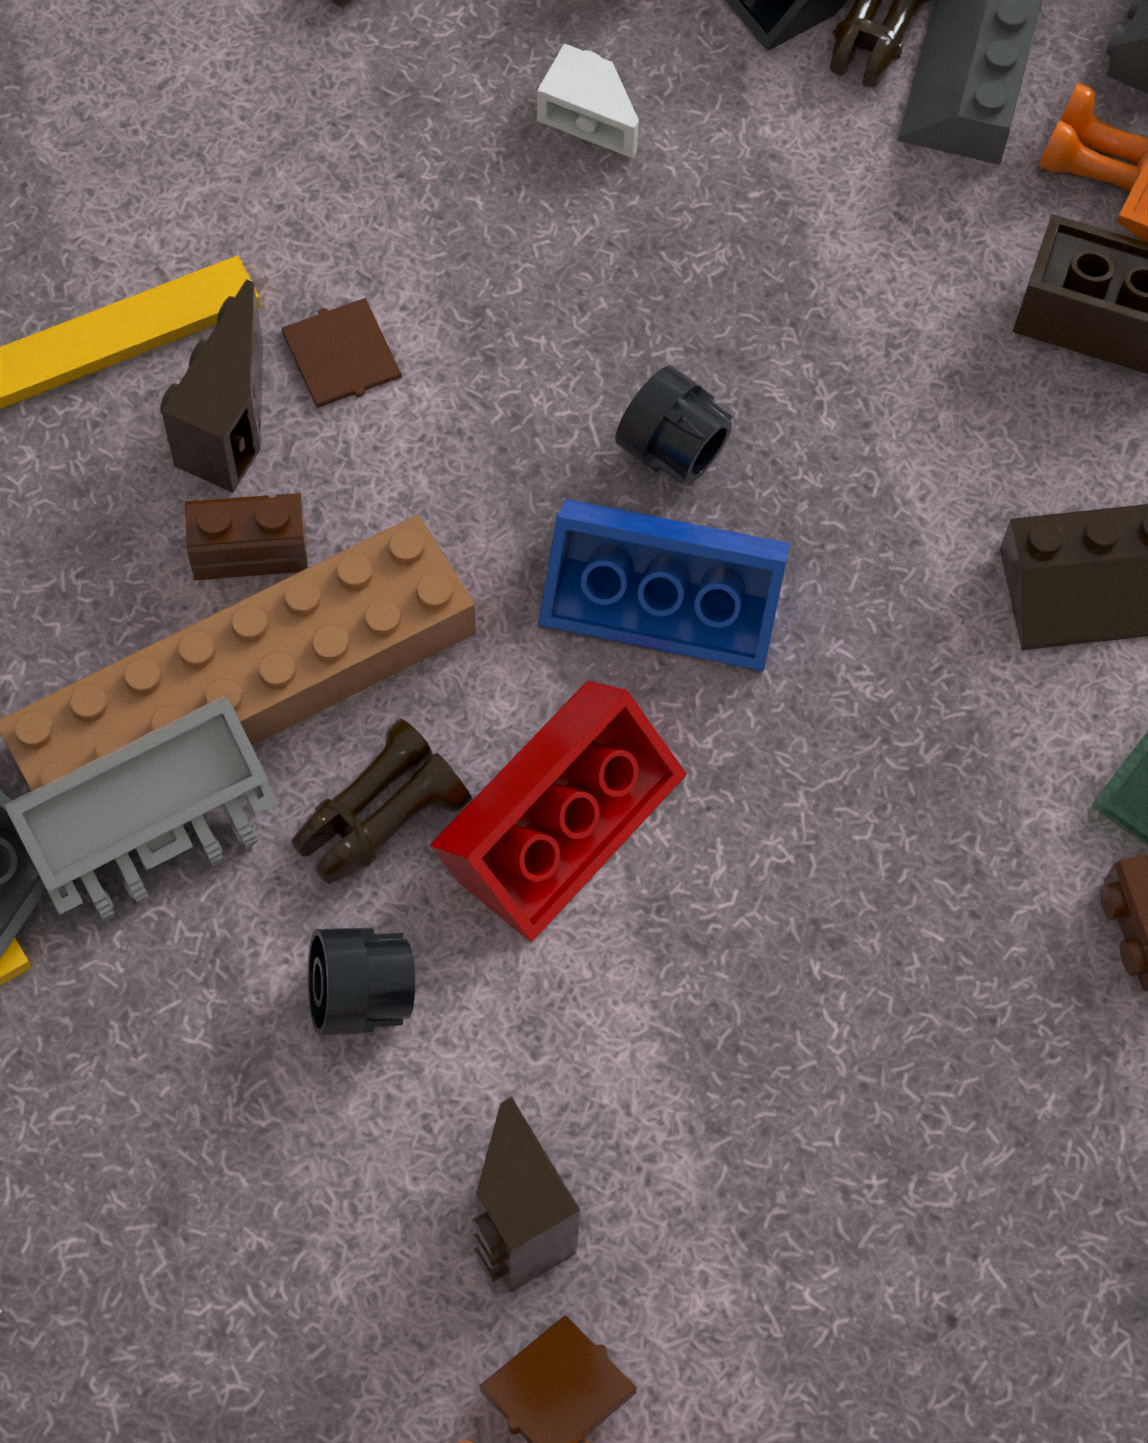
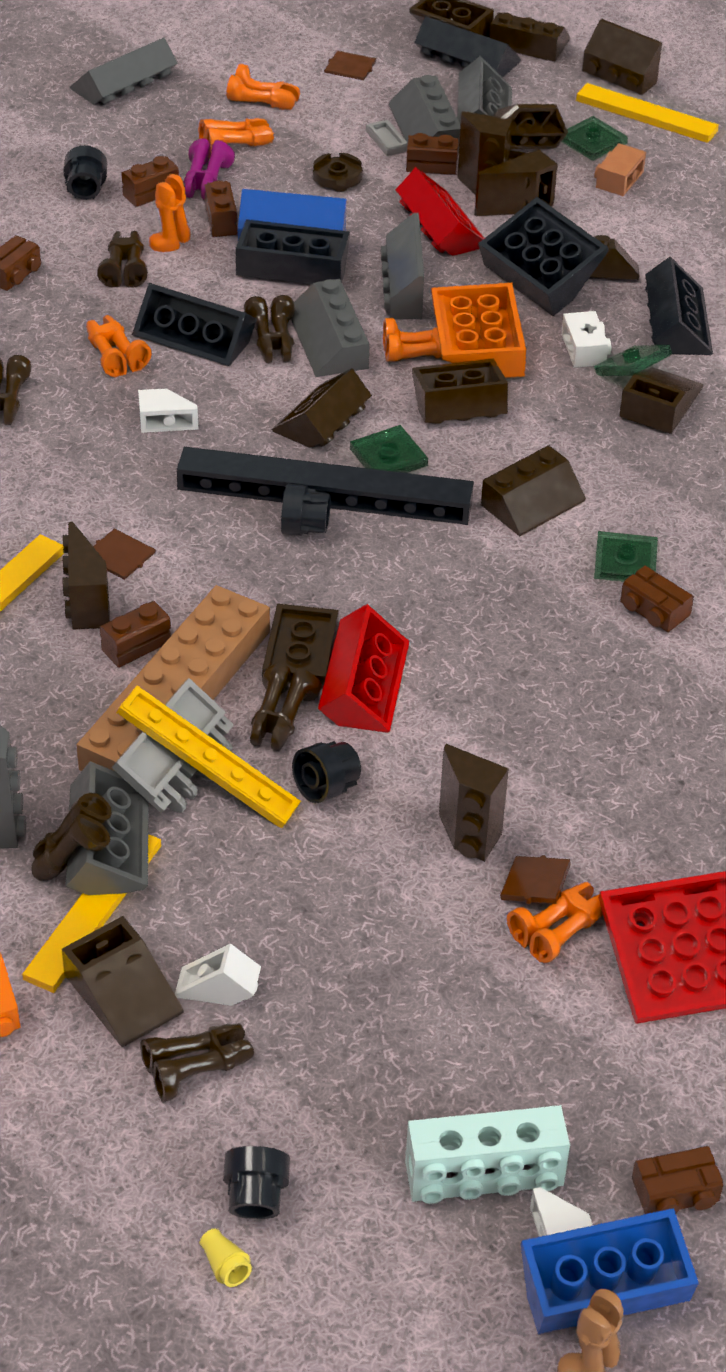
camera: 30 degrees left, 20 degrees down
(174, 861) = (208, 756): none -> yellow tile
(499, 689) = (302, 639): none -> dark brown plate
(663, 584) = (346, 572): blue slope -> none
(762, 390) = (349, 486): none -> black brick
(854, 226) = (325, 410): none -> dark brown slope
(907, 367) = (389, 451): none -> clear green plate

